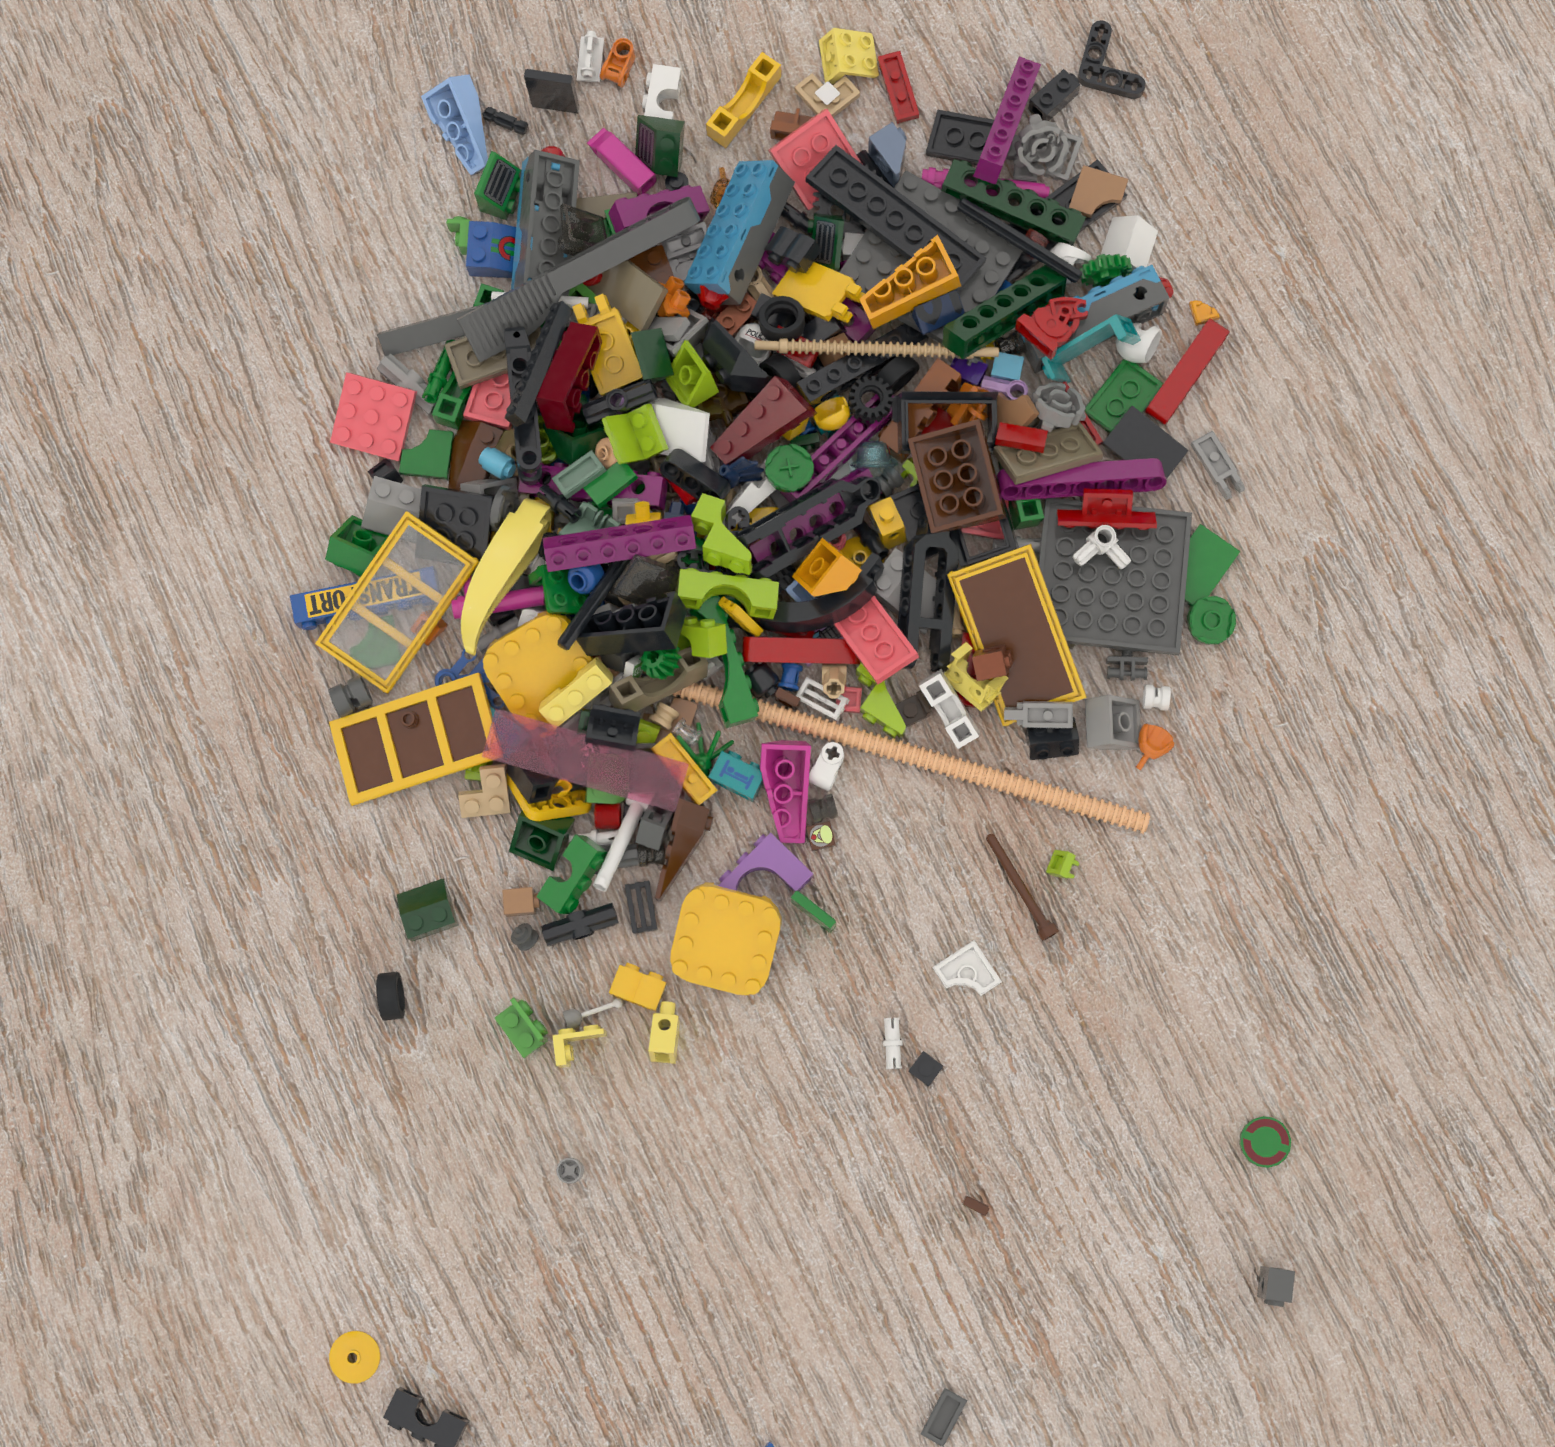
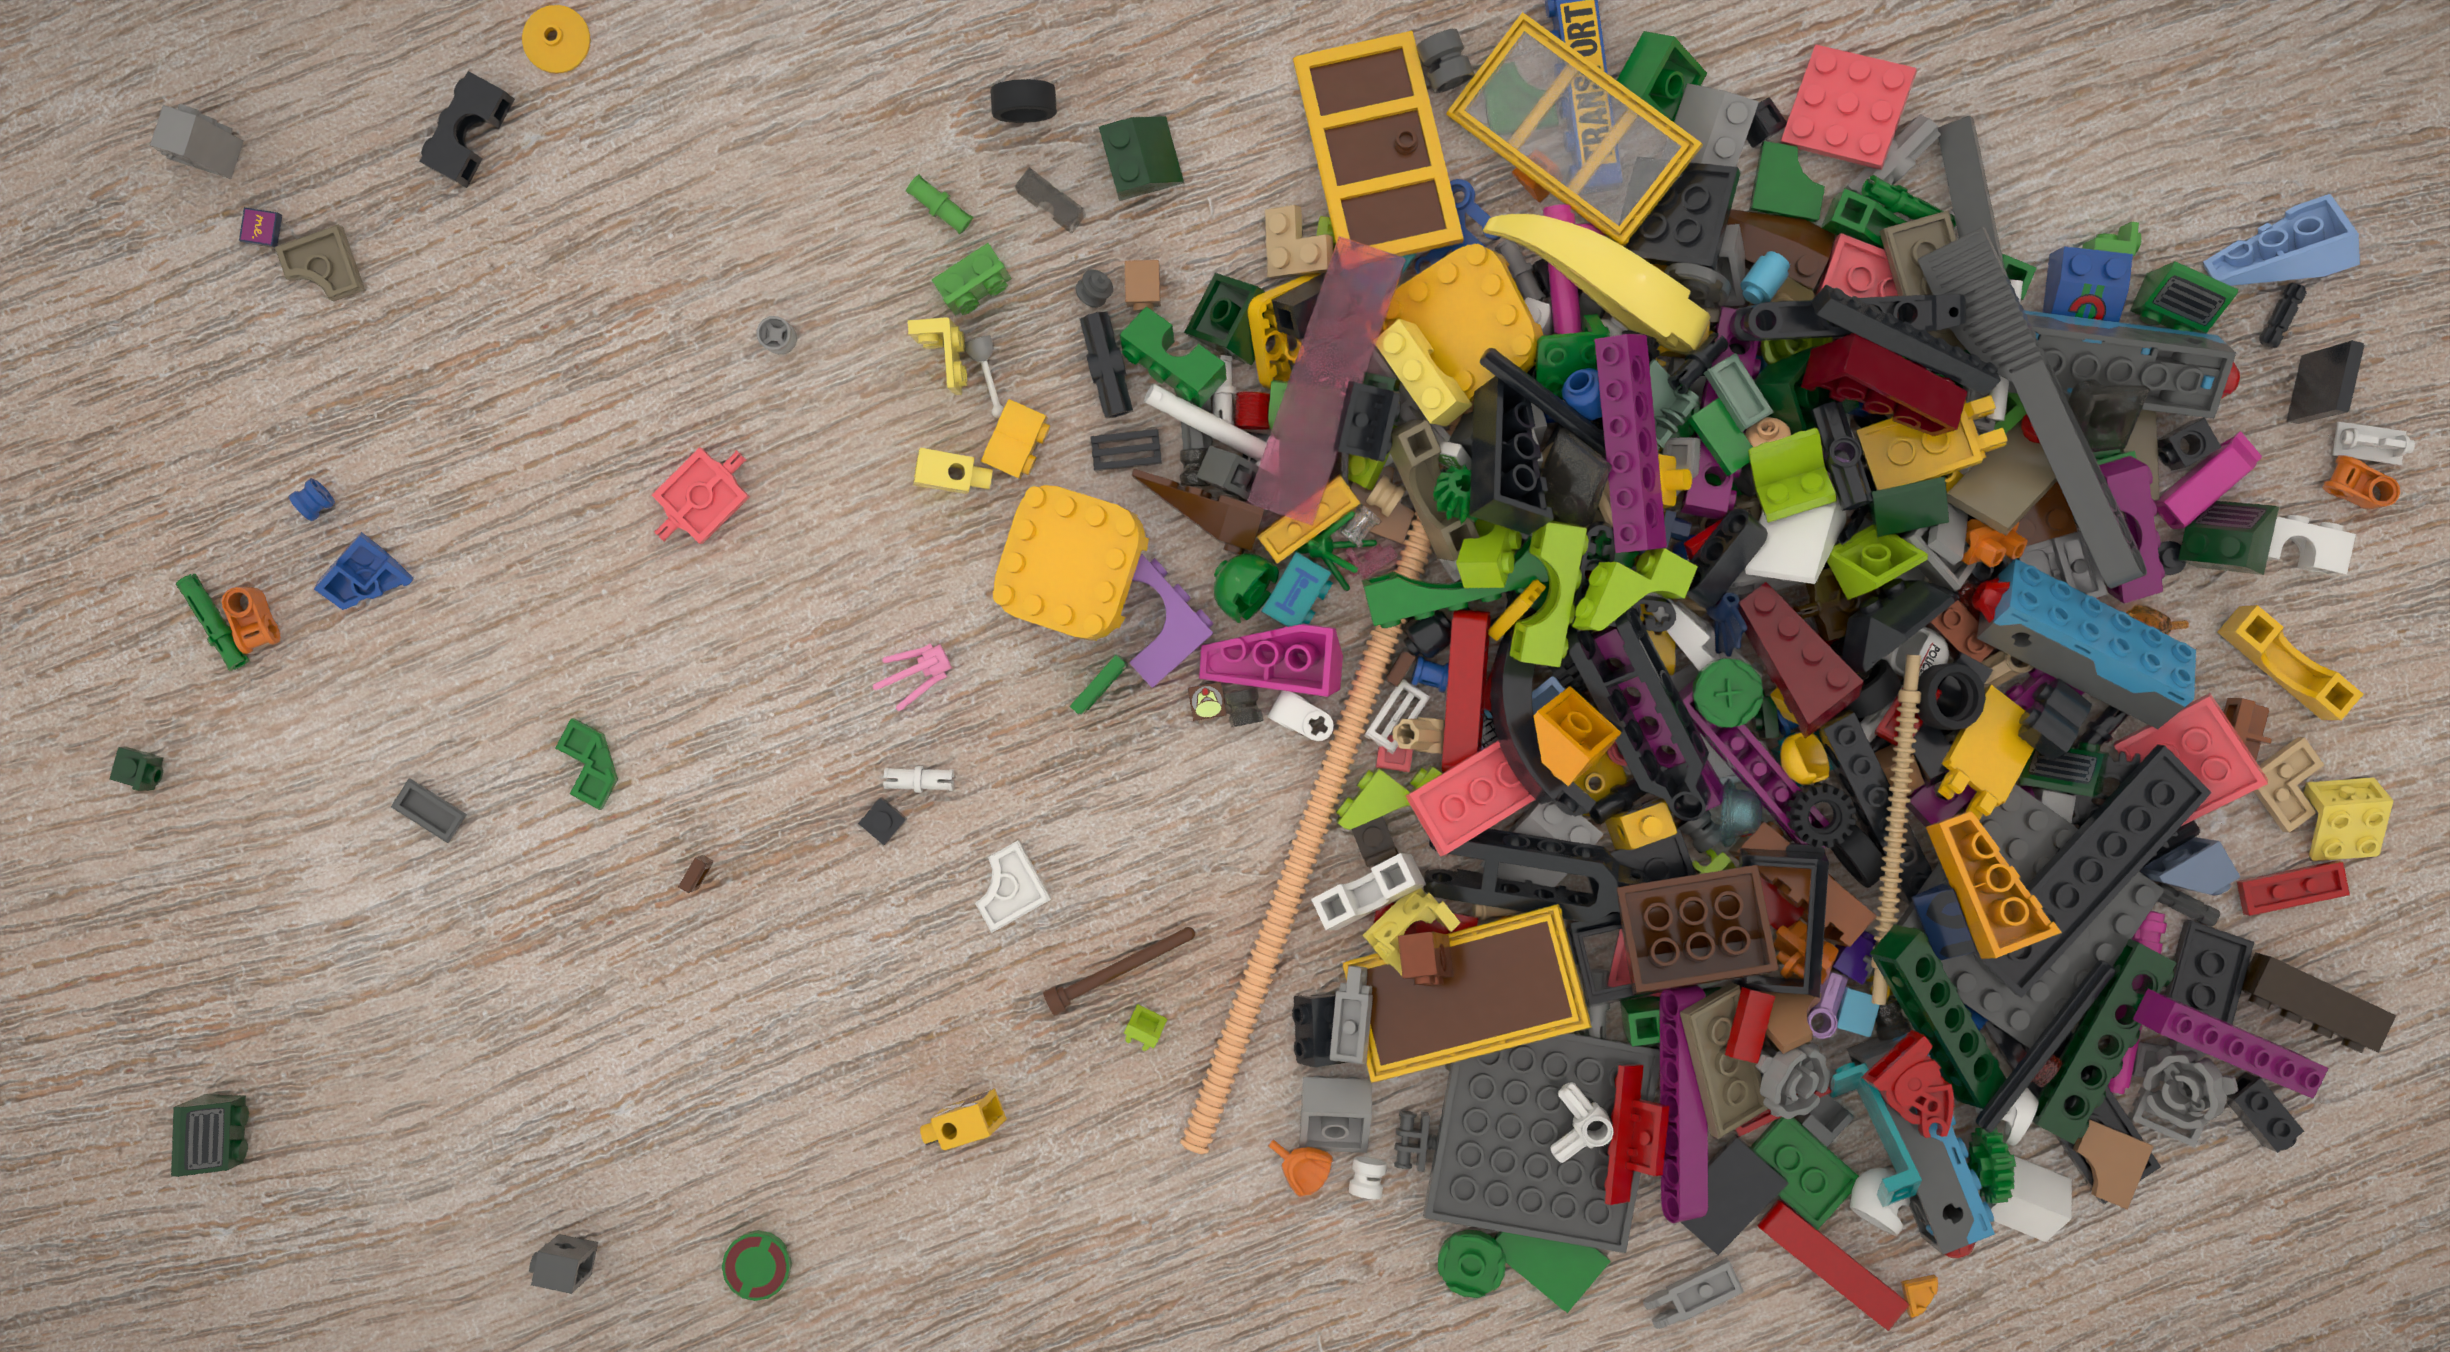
camera: 90 degrees right, 10 degrees up
(454, 982) = (1043, 194): none -> clear smoke piece
(467, 1055) = (939, 204): none -> bright green pin
(594, 168) = (2200, 440): none -> black brick
(670, 394) = (1856, 517): none -> black piece
(692, 1221) = (700, 495): none -> coral plate
(709, 722) = (1376, 558): none -> clear pink bracket
(734, 814) = (1243, 585): none -> green cylinder
(805, 1038) = (933, 662): none -> bright pink plant
(827, 93) = (2291, 784): white sticker -> none
(906, 1287) = (598, 773): none -> green tile
(916, 153) = (2188, 905): none -> dark grey axle
(975, 66) = (2317, 1002): none -> dark brown brick
(1086, 383) = (1826, 1120): none -> dark grey panel
(1096, 67) = (2302, 1176): black beam -> none
(1138, 981) = (965, 1121): none -> yellow torso

